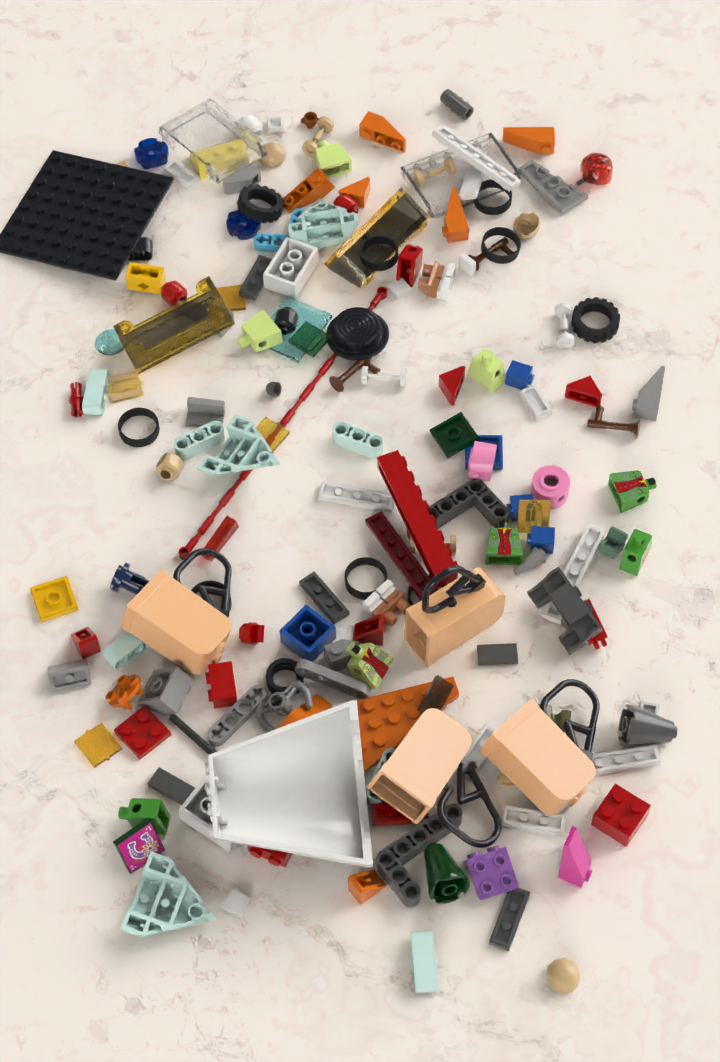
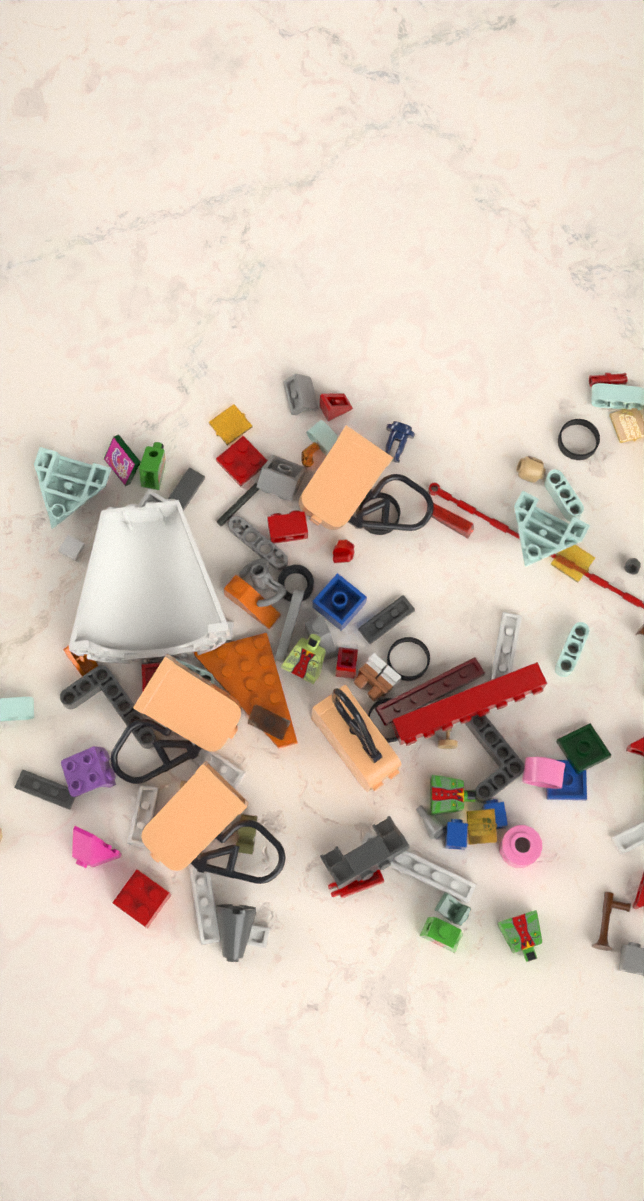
camera: 85 degrees right, 15 degrees up
(54, 599) = (382, 377): yellow tile -> none
(124, 691) = (279, 441): orange plate -> none
(139, 669) = (307, 454): none -> clear orange arm
(204, 411) = (597, 501): light grey panel -> none
(443, 875) = (87, 726): dark green cone -> none
(497, 654) = (323, 786): dark grey tile -> none

